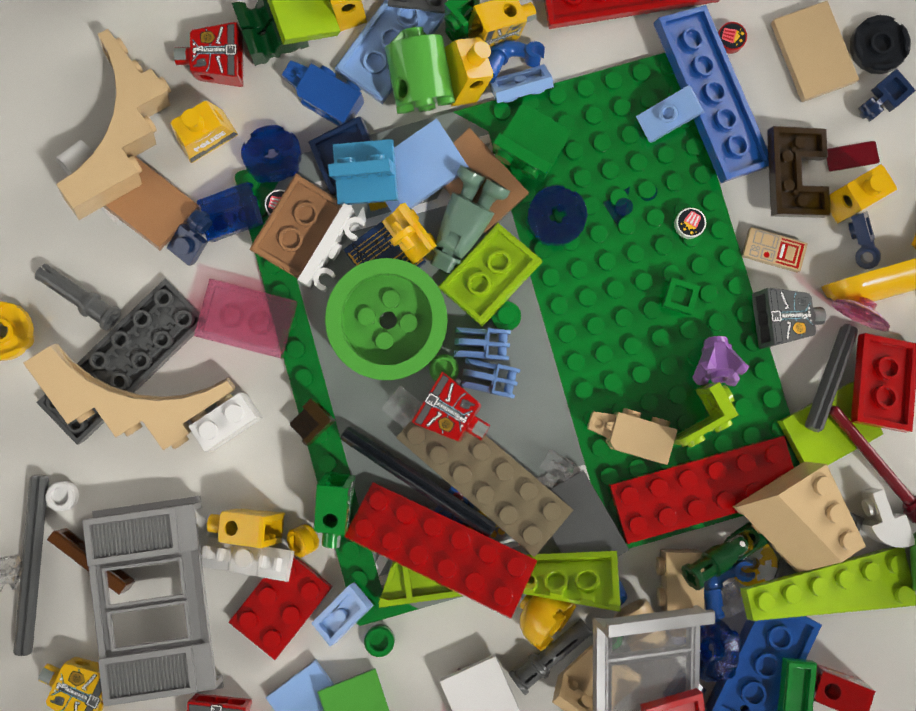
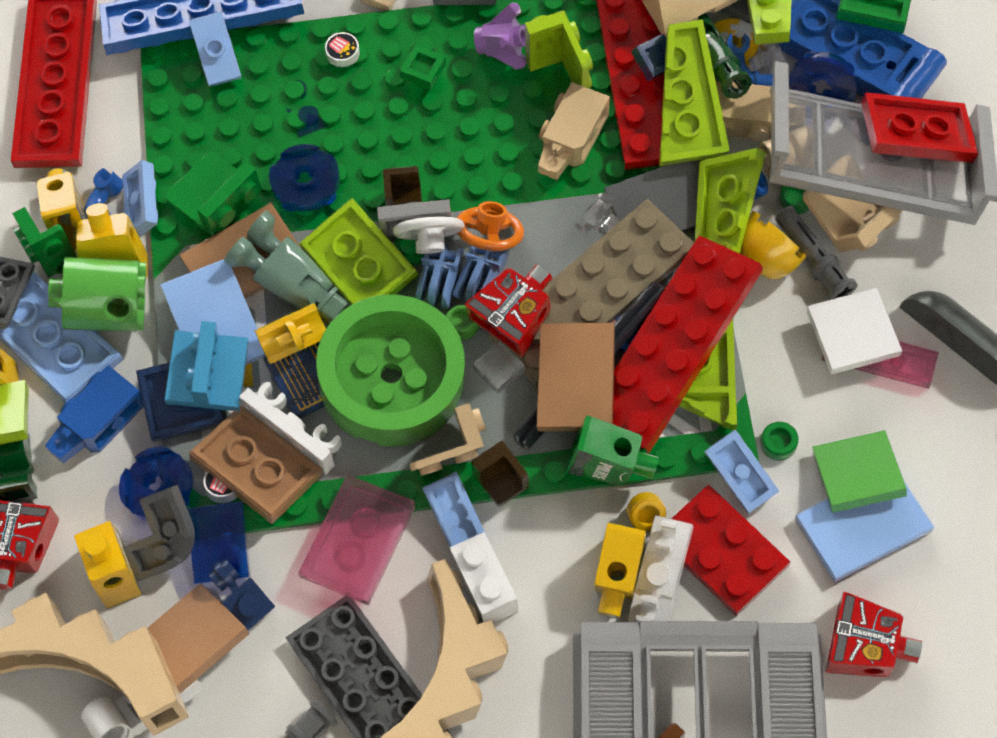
camera: 80 degrees left, 20 degrees down
(224, 171) = (171, 537): none -> dark grey plate
(279, 390) = (453, 509): none -> light blue plate
(319, 381) = (470, 424): none -> tan bracket
(397, 472) = (575, 374): none -> medium nougat tile
(510, 330) = (429, 232): none -> white piece
(525, 315) = (392, 215): none -> light grey plate
(543, 378) = (490, 220): none -> orange piece
(551, 301) = (402, 185): none -> dark brown panel
(673, 537) = (691, 105): none -> lime wing
(715, 503) = (651, 57): none -> dark blue plate

